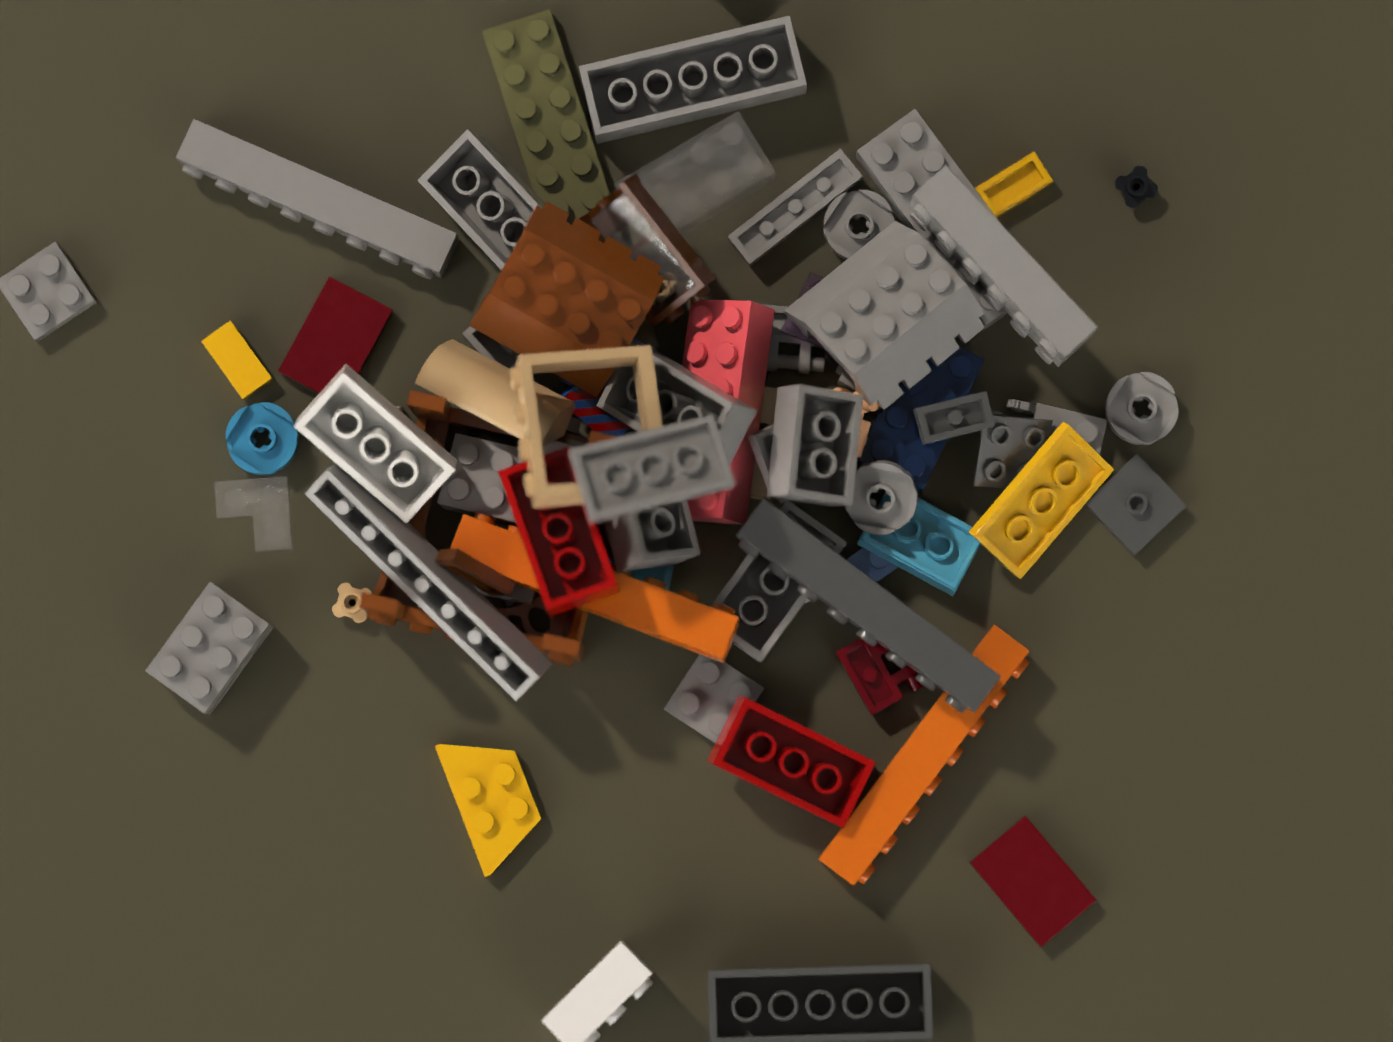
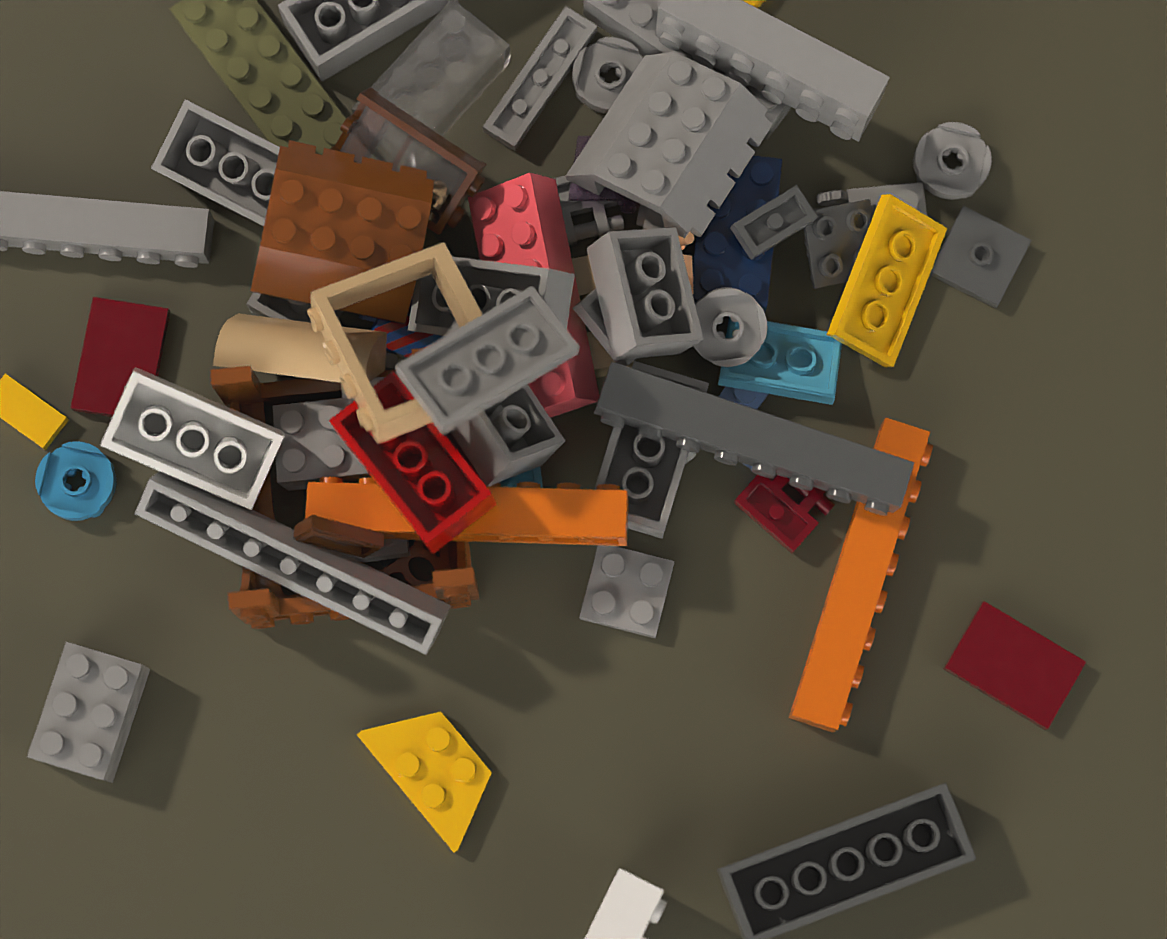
camera: 25 degrees left, 5 degrees down
(266, 502) = (95, 543): clear plate -> none
(342, 607) = (214, 624): tan plate -> none
(791, 761) = (729, 624): red brick -> none

